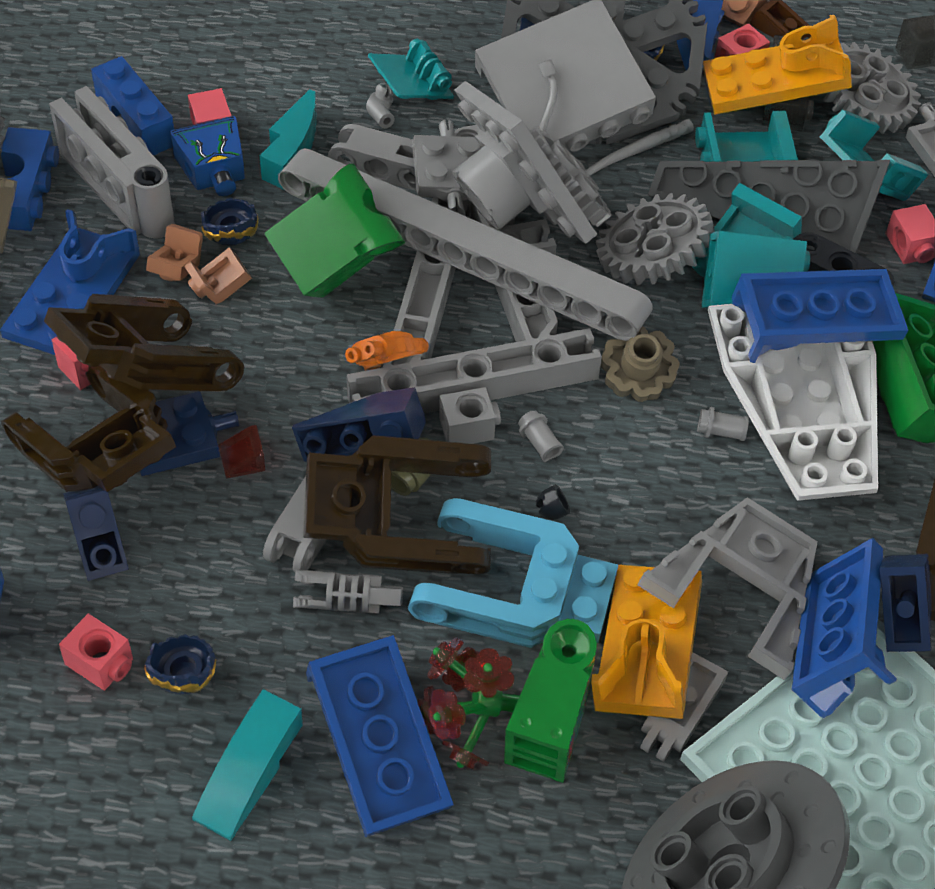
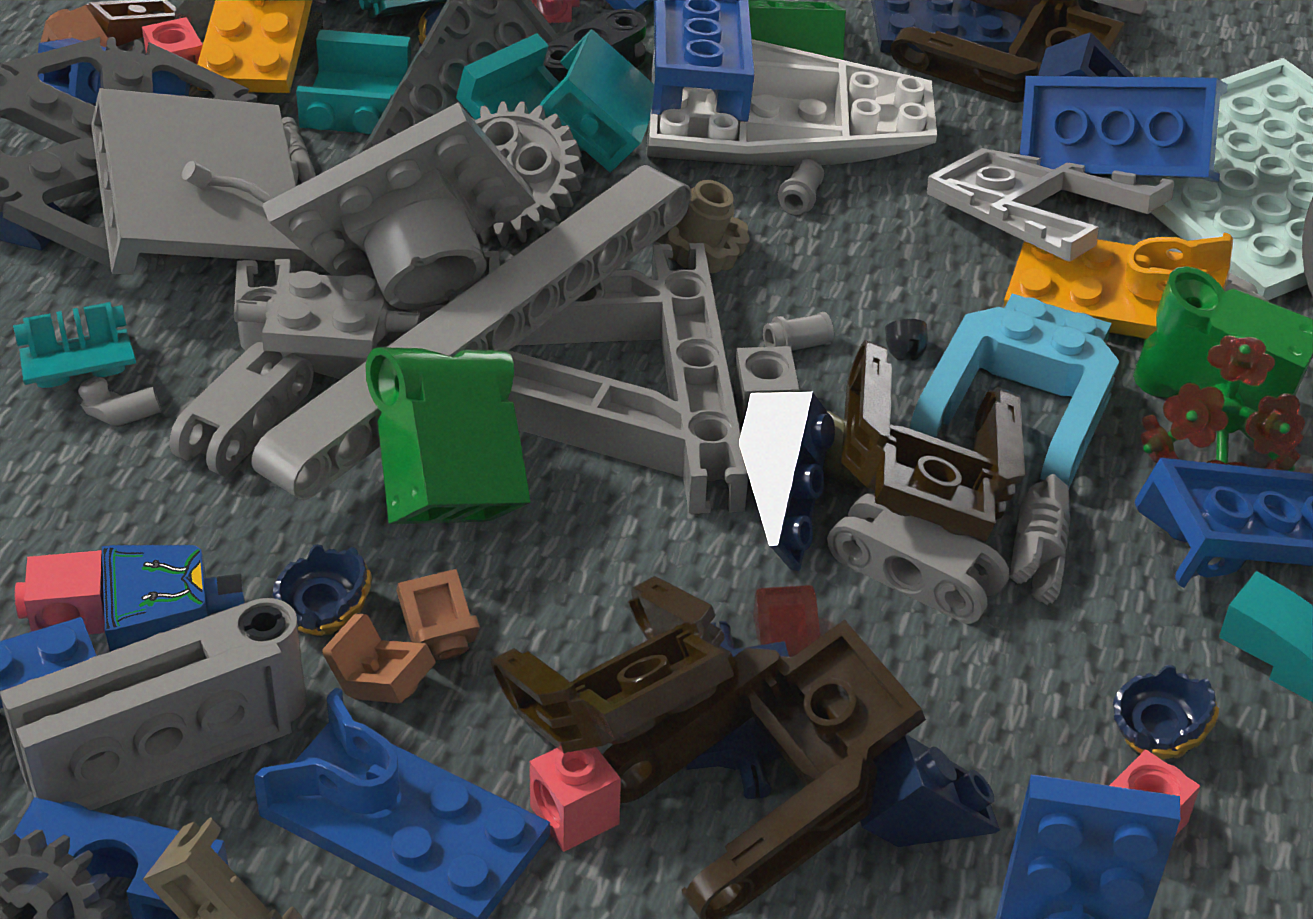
camera: 80 degrees left, 10 degrees down
(288, 136) = (167, 500): teal slope -> none
(385, 348) = (668, 436): orange helmet -> none

